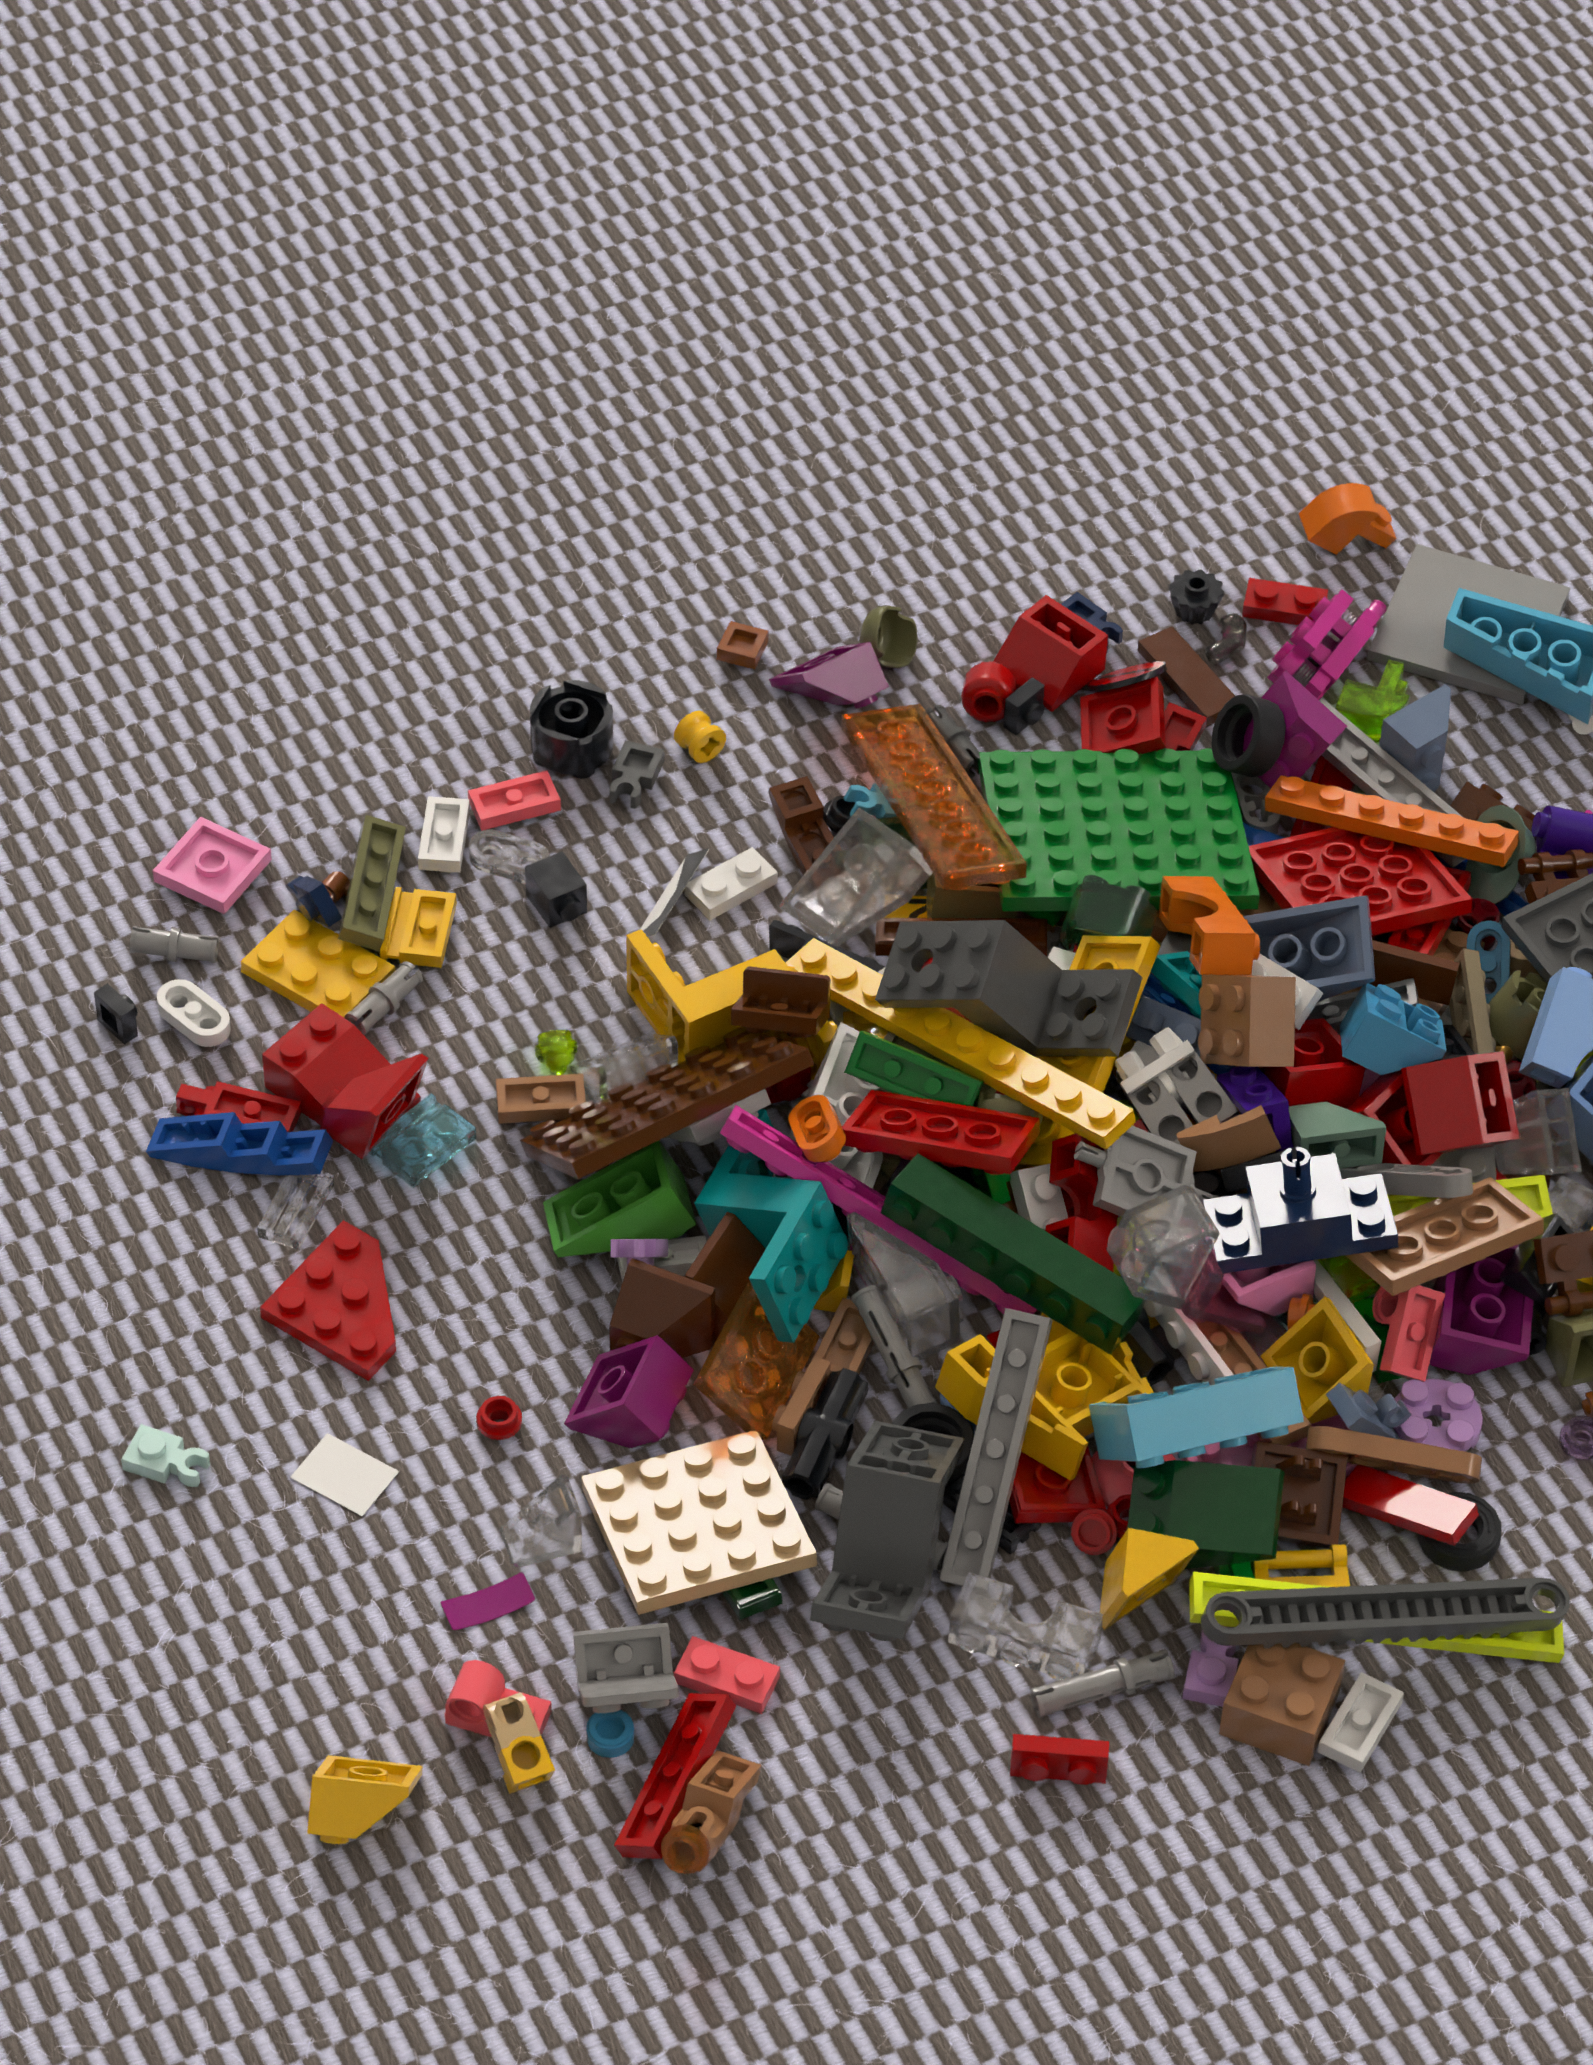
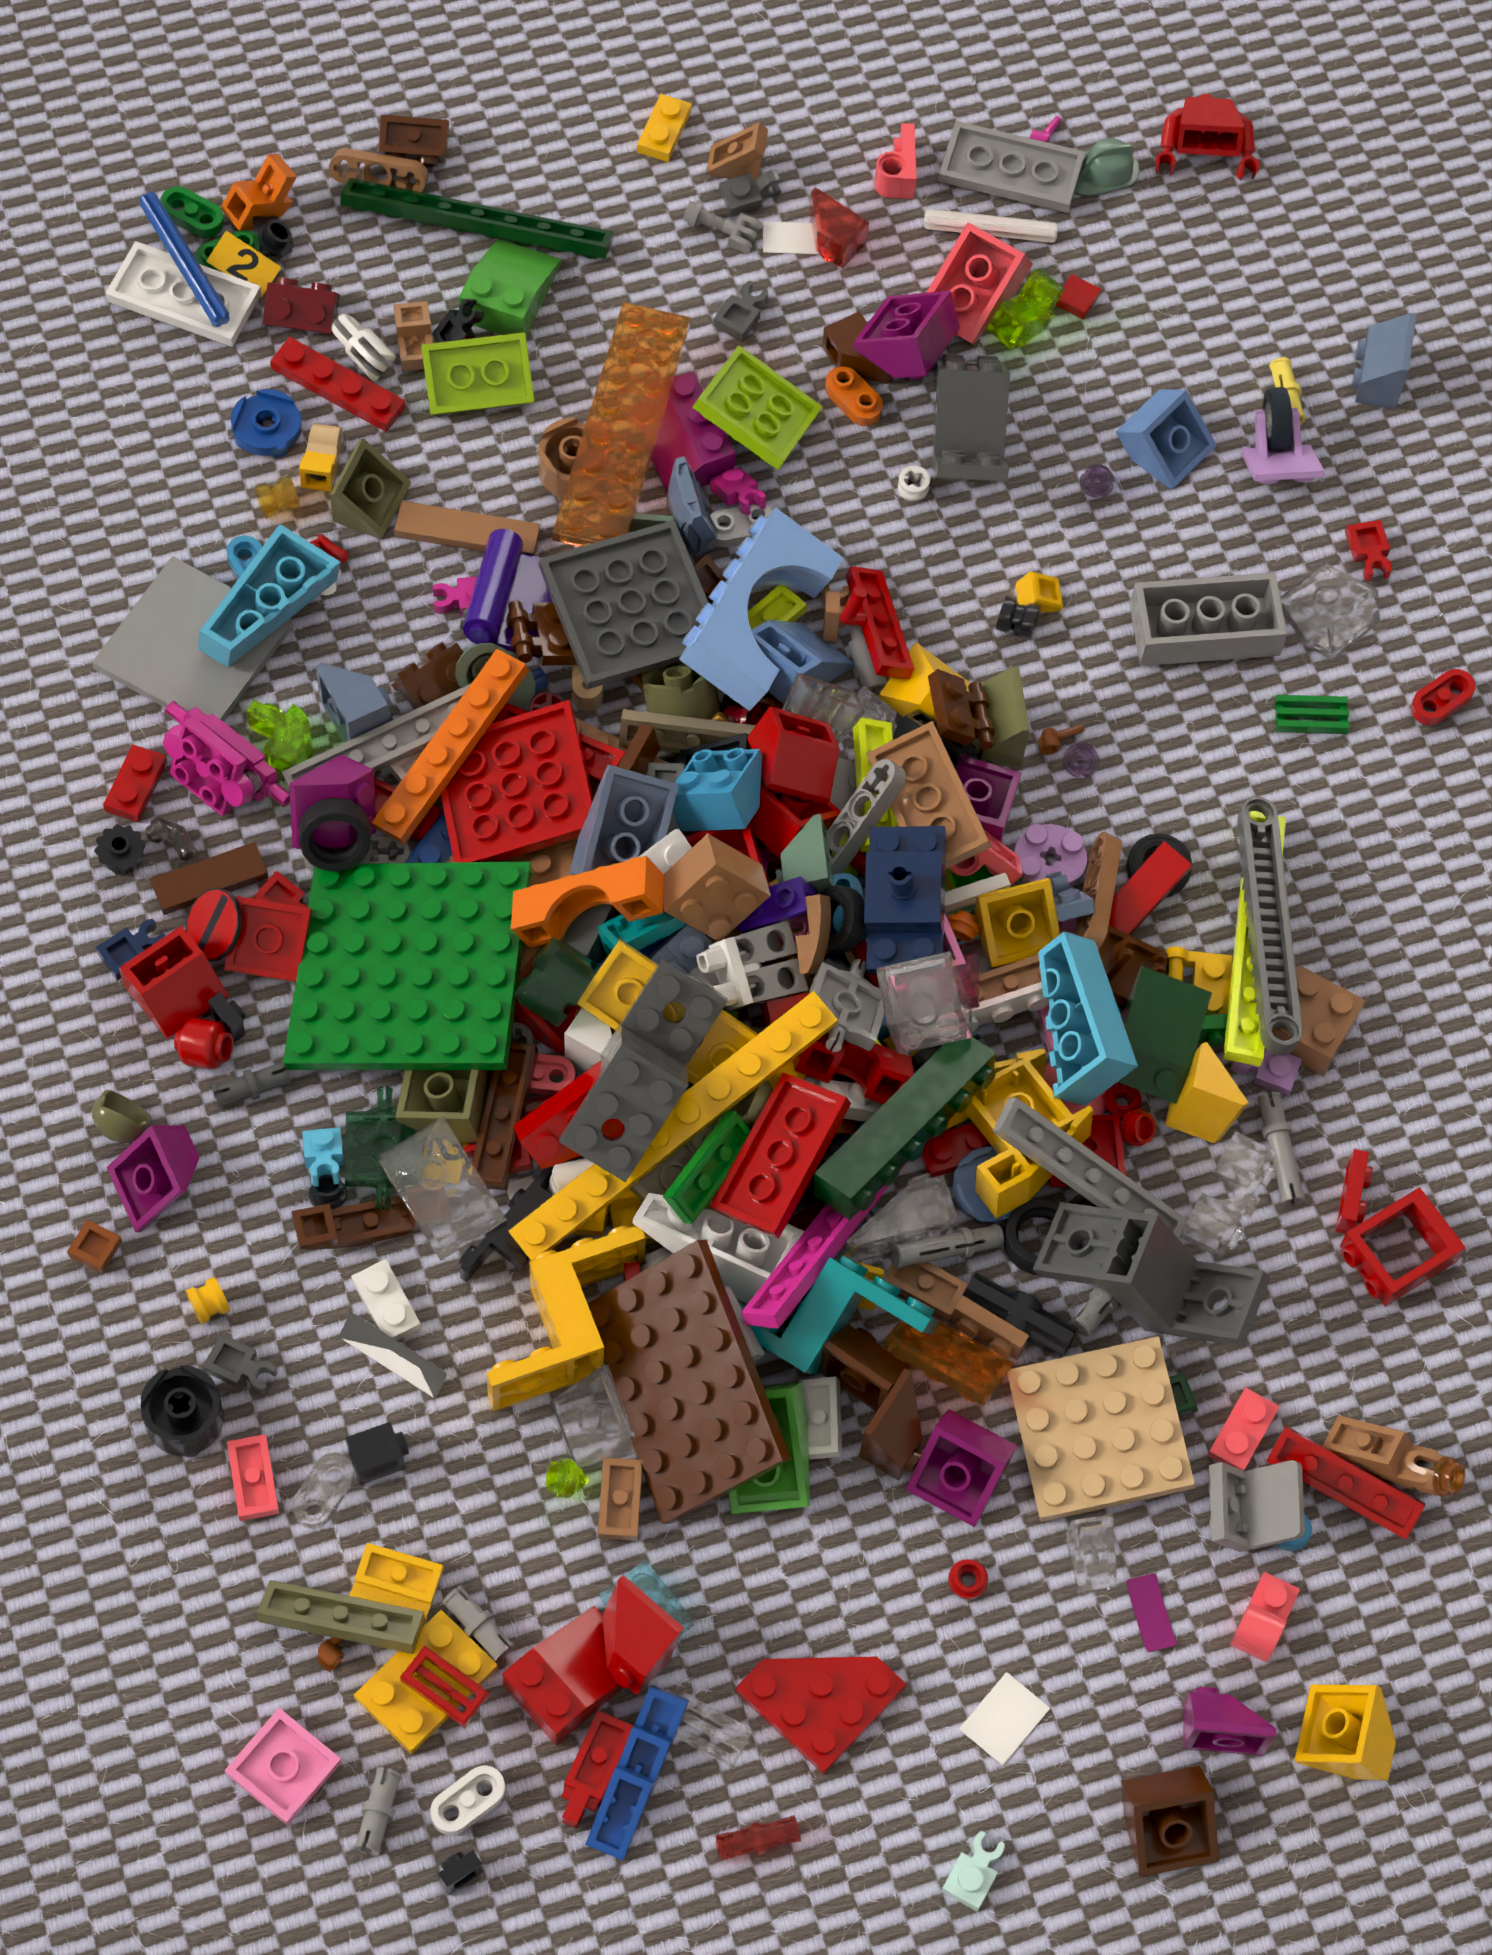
camera: 85 degrees left, 15 degrees up
(180, 1259) = (757, 1838): none -> clear red pin
(238, 1625) = (1170, 1820): none -> reddish brown slope
(295, 992) = (471, 1707): none -> red tile
(314, 900) = (364, 1670): dark blue plate -> none
(355, 1657) = (1223, 1724): none -> magenta slope
(444, 834) = (283, 1546): white plate -> none
(518, 1743) = (1317, 1598): leg -> none
(639, 1249) = (833, 1430): lavender plate -> none
(782, 1002) = (612, 1262): reddish brown bracket -> none
(817, 1129) = (771, 1251): orange plate -> none
(933, 797) = (353, 1104): clear orange plate -> none
(1023, 1853) = (1429, 1225): none -> red window
(1344, 513) = (57, 710): orange brick -> none
(1360, 1722) = (1333, 966): white plate -> none
(1495, 962) = (600, 710): dark azure plate -> none

